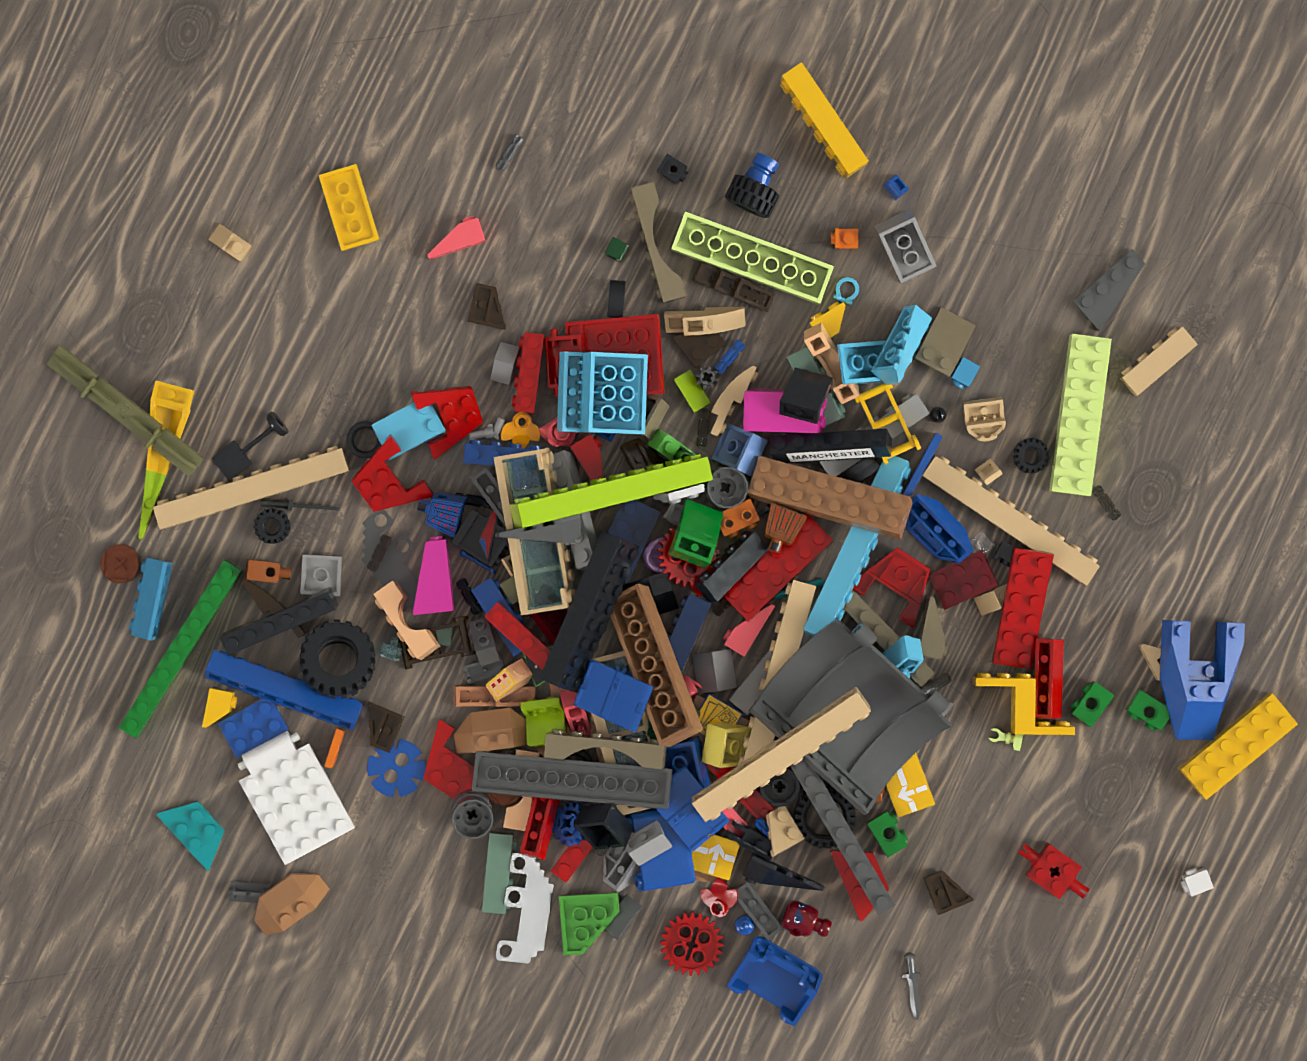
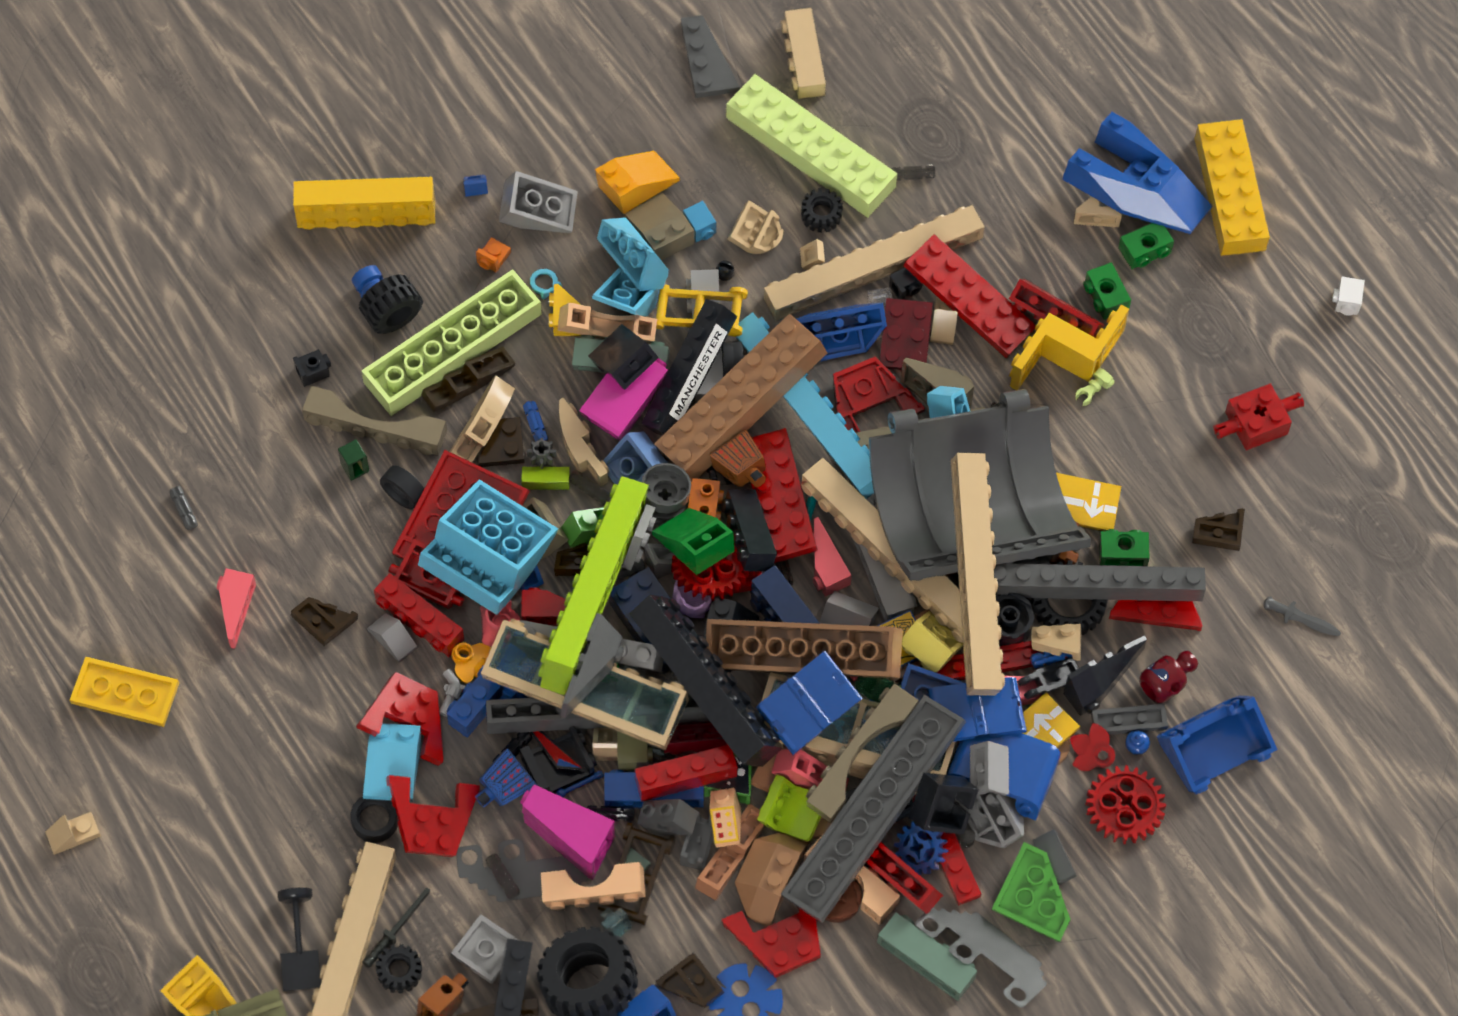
camera: 60 degrees left, 25 degrees down
(474, 824) = (849, 927): dark grey wheel -> none
(923, 463) = (760, 300): blue tile -> none
(972, 304) = (634, 179): none -> light orange slope

